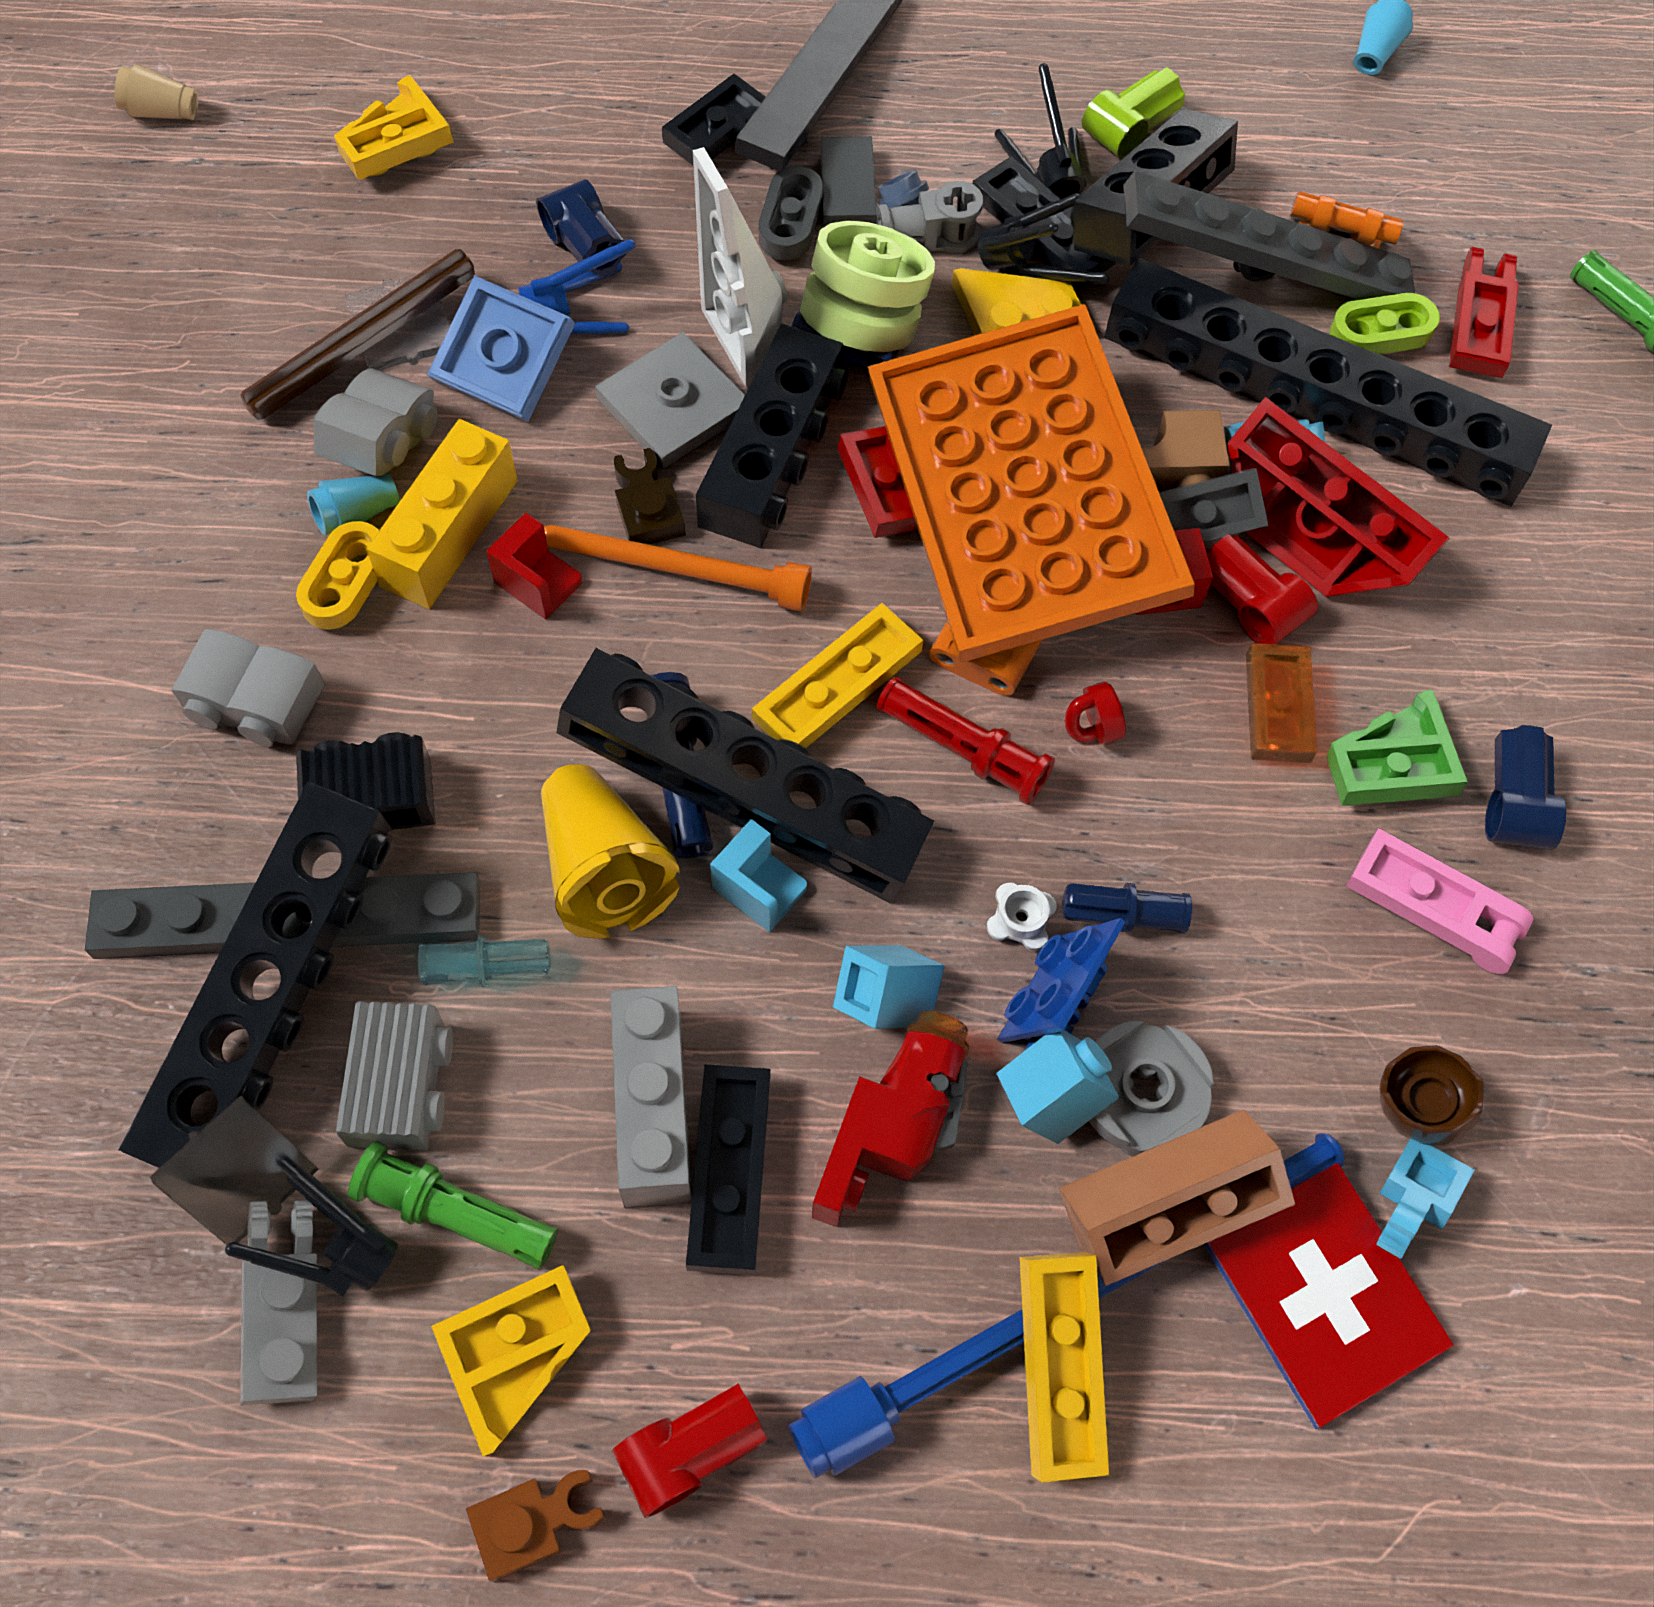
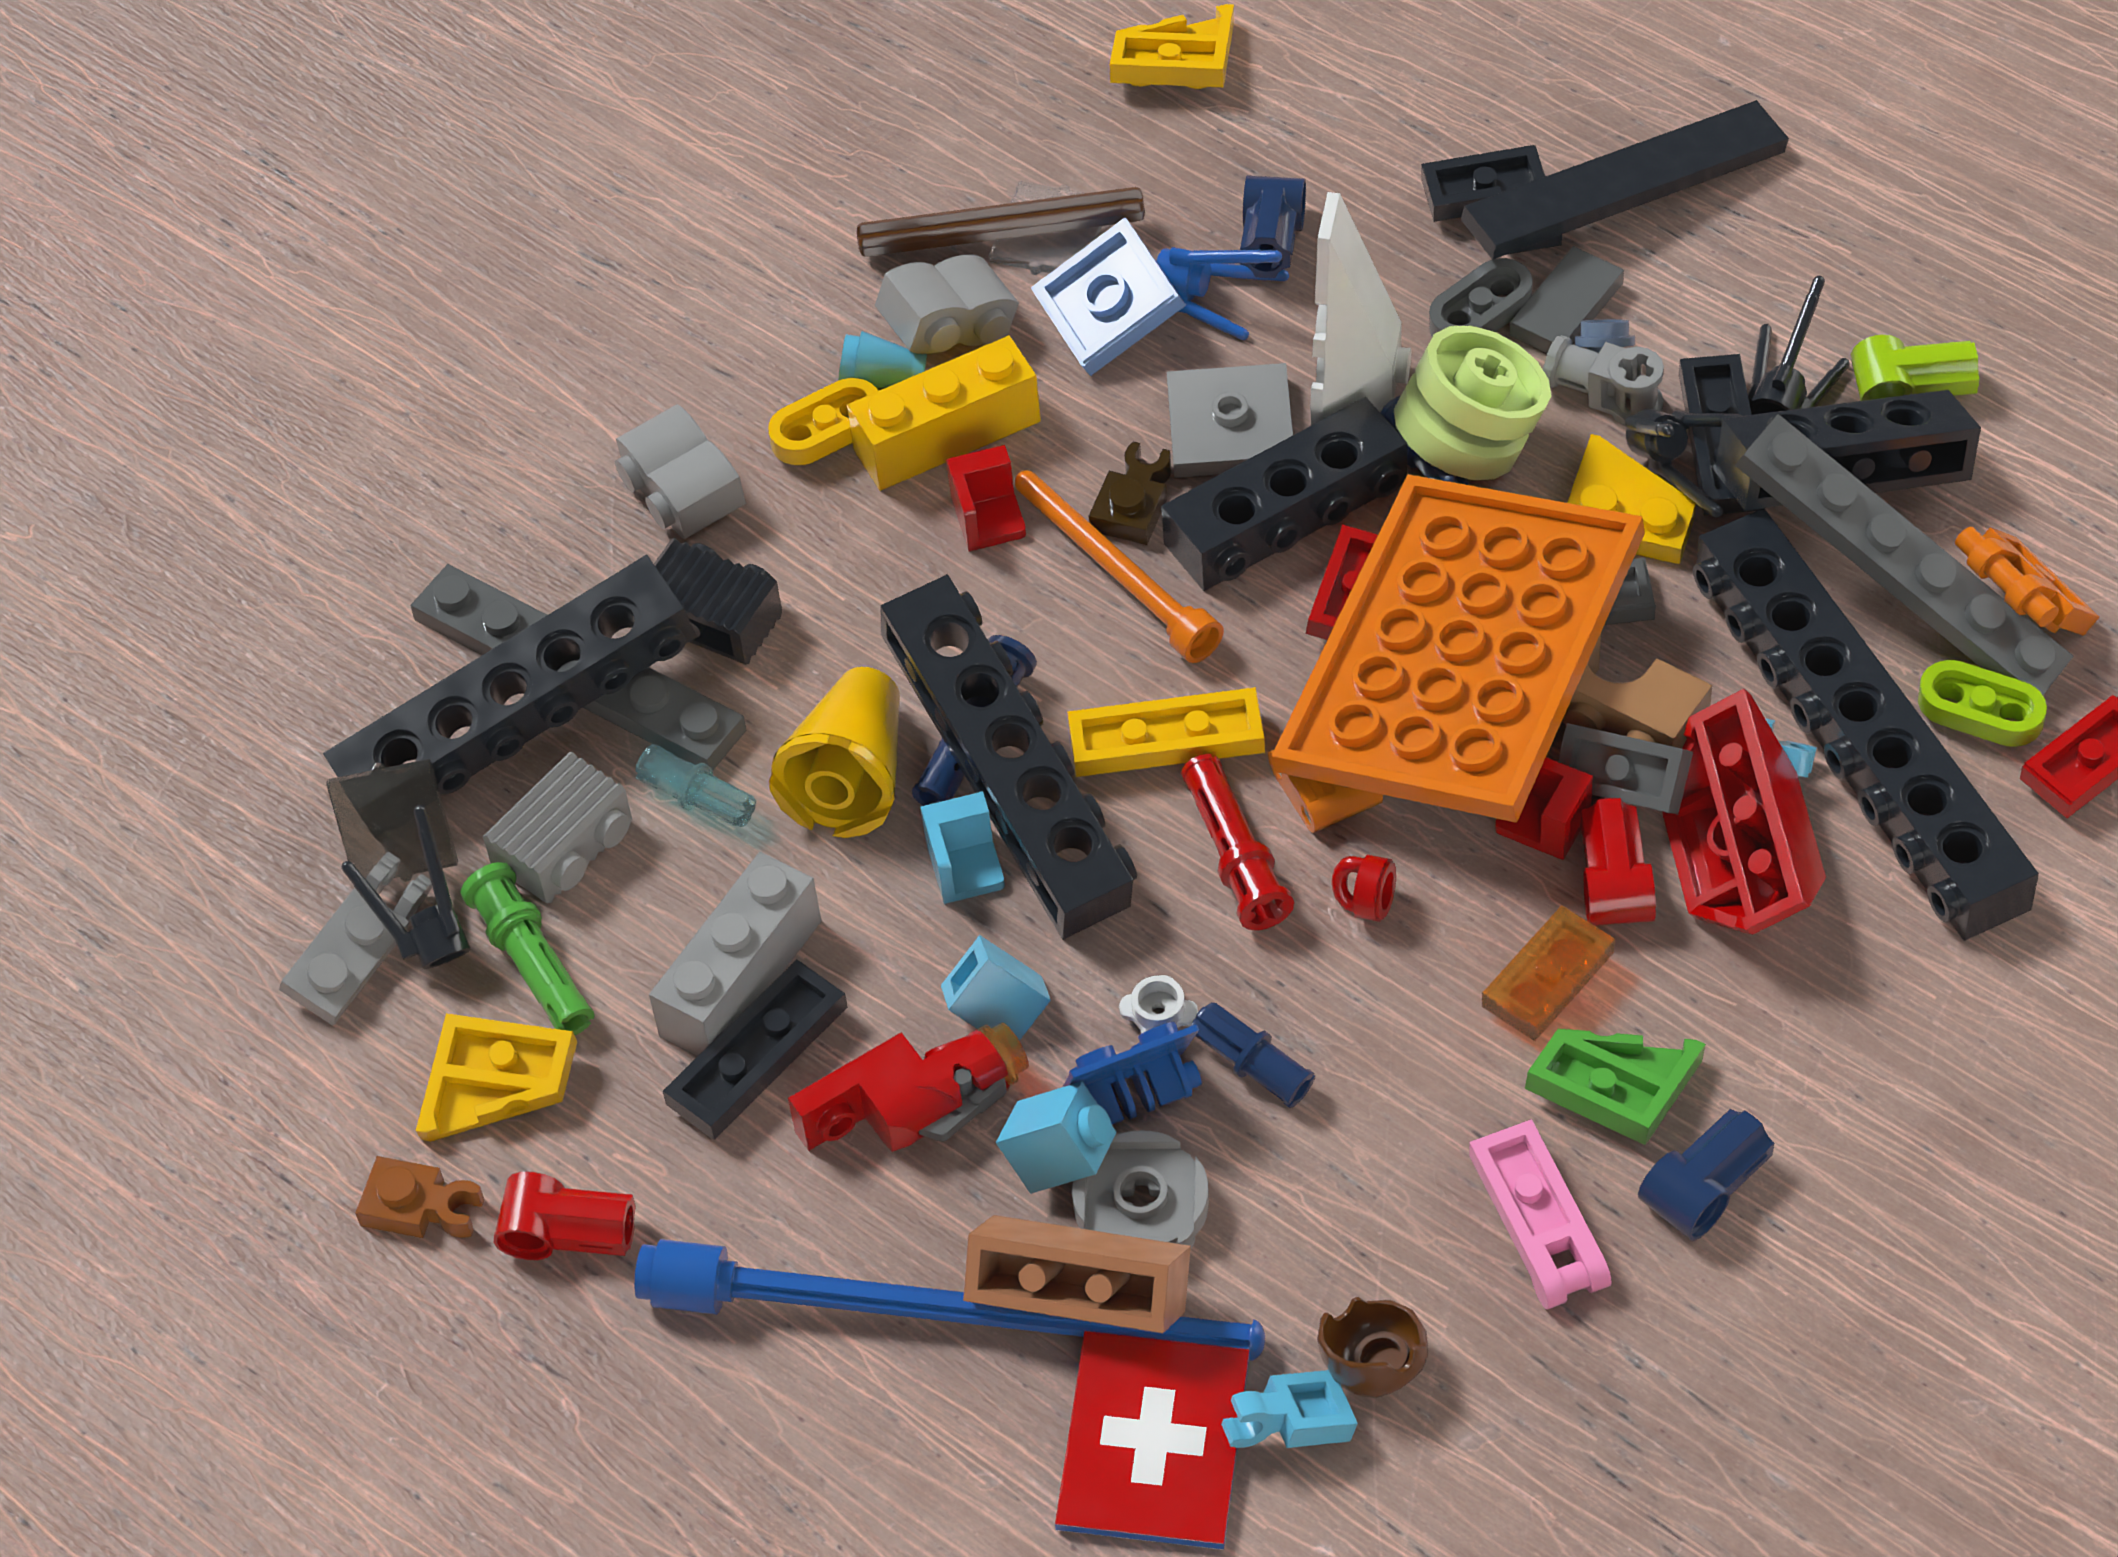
camera: 45 degrees right, 10 degrees down
(1064, 1366) = (882, 1334): yellow plate -> none

